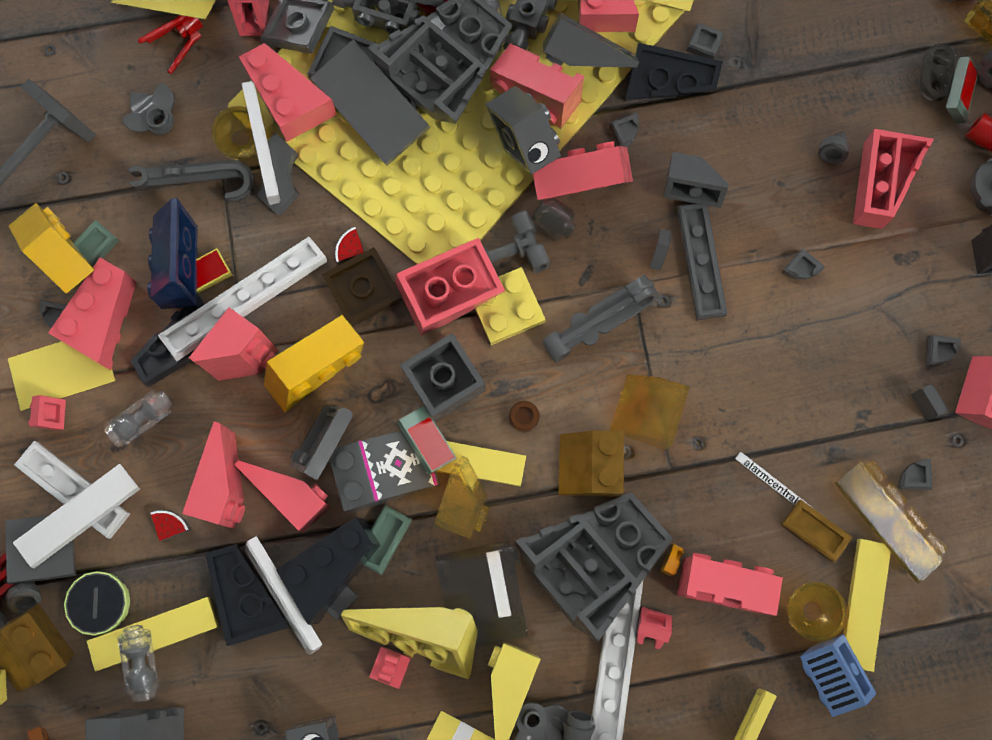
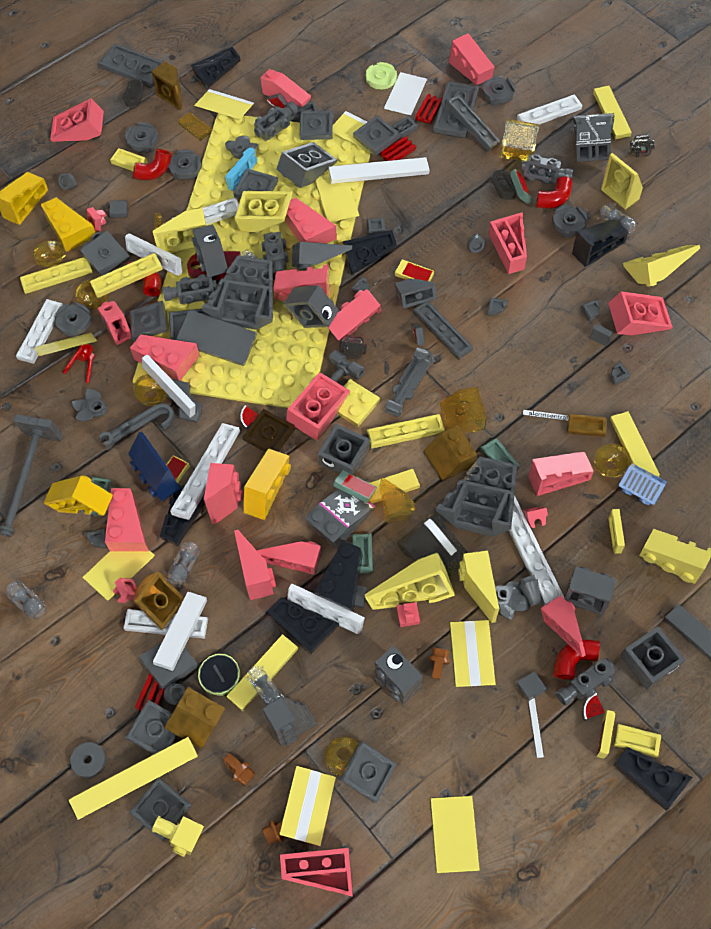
camera: 30 degrees left, 15 degrees down
(69, 455) = (158, 599): none -> pearl gold slope
(169, 524) = (235, 610): red tile -> none
(321, 440) = (297, 516): dark grey container -> none
(524, 416) = (399, 451): reddish brown tile -> none
(552, 390) = (405, 431): none -> light yellow tile
(660, 501) = (497, 451): none -> sand green tile
(671, 561) = (523, 479): light orange tile -> none
(715, 147) = (409, 270): none -> red tile
(896, 528) = (626, 402): clear yellow windscreen -> none

